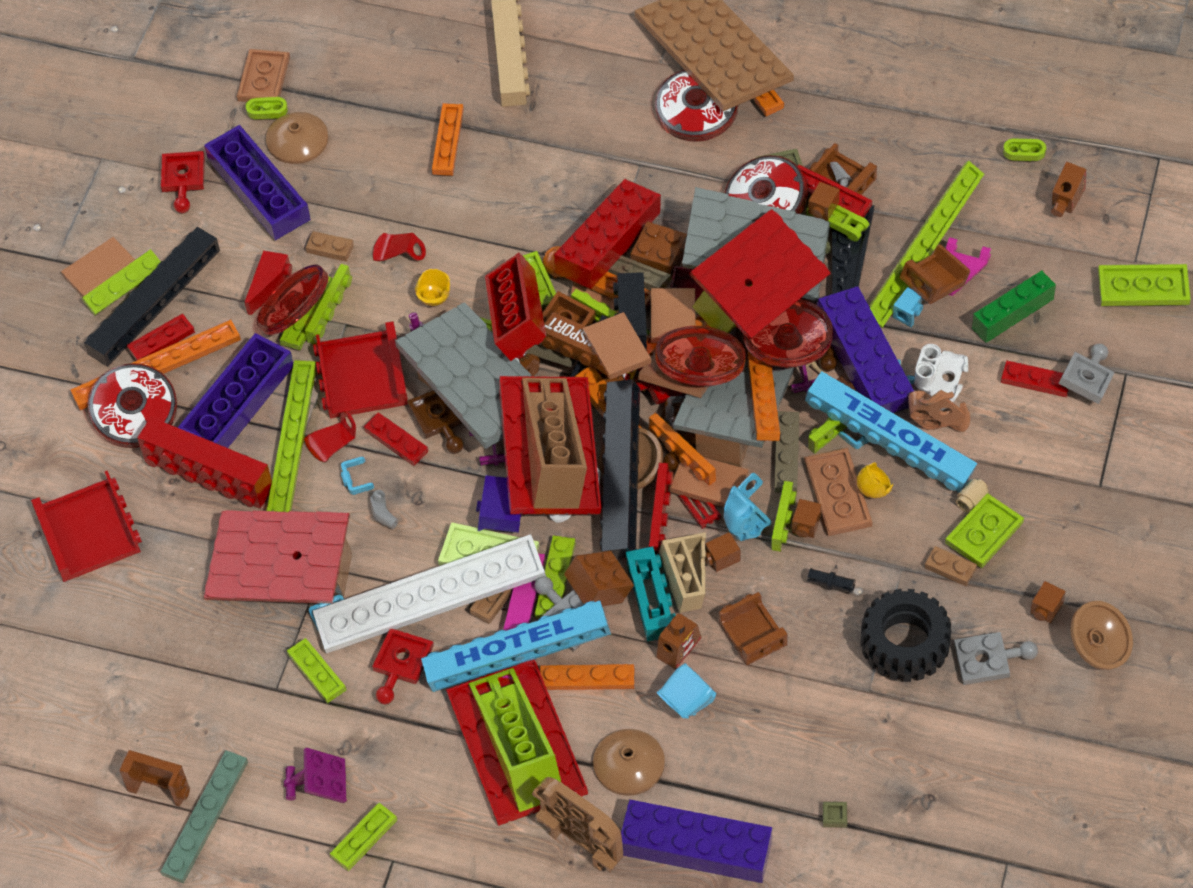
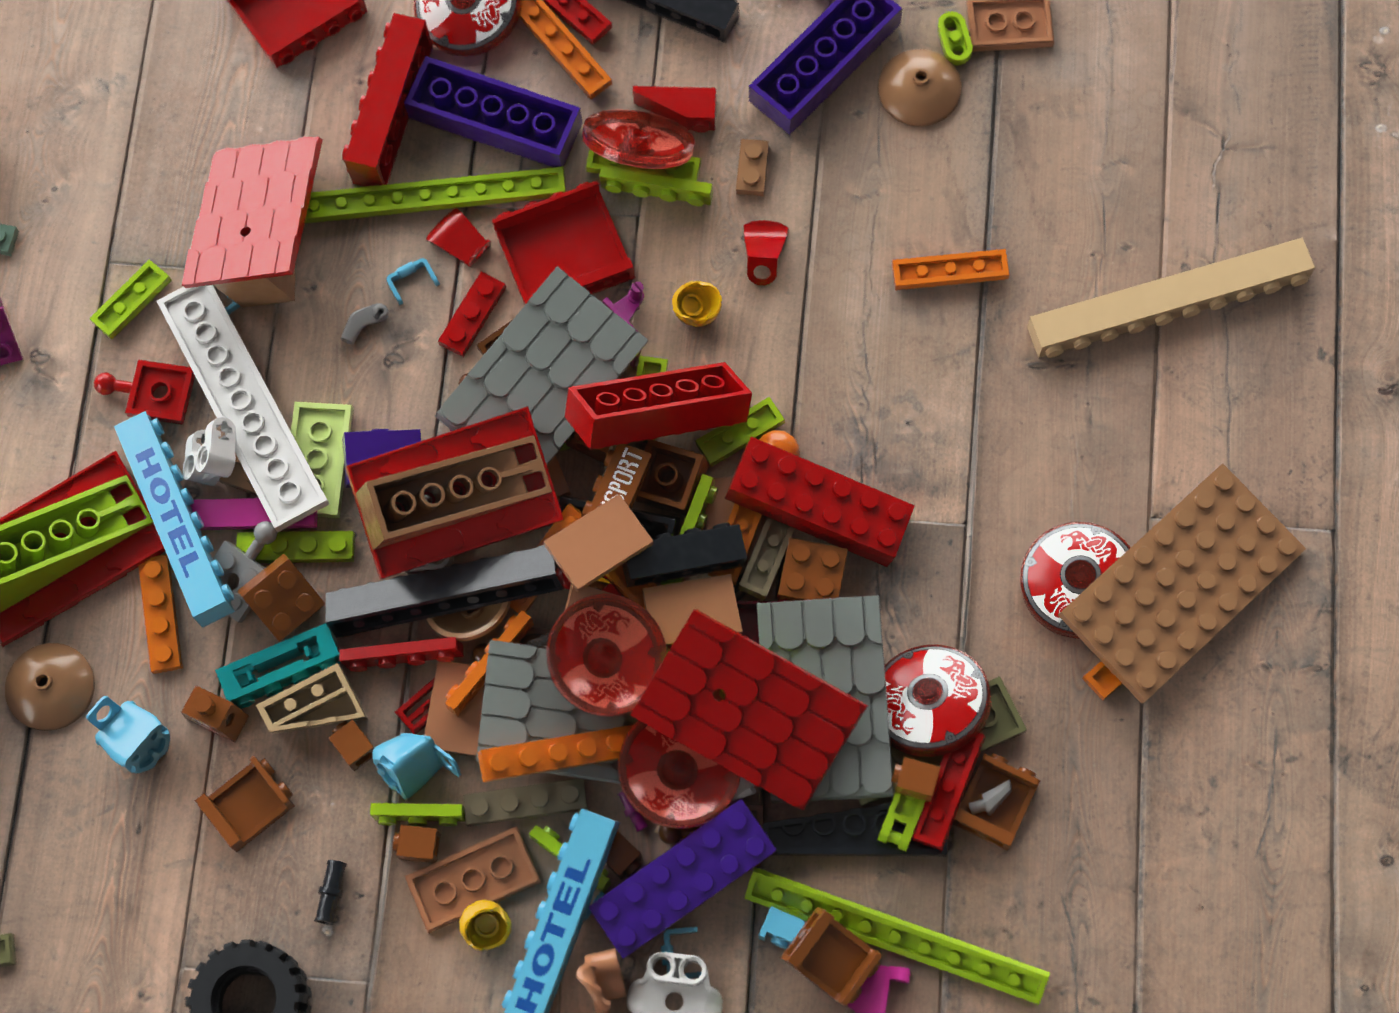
camera: 80 degrees right, 15 degrees up
(466, 599) = (215, 457): none -> white piece

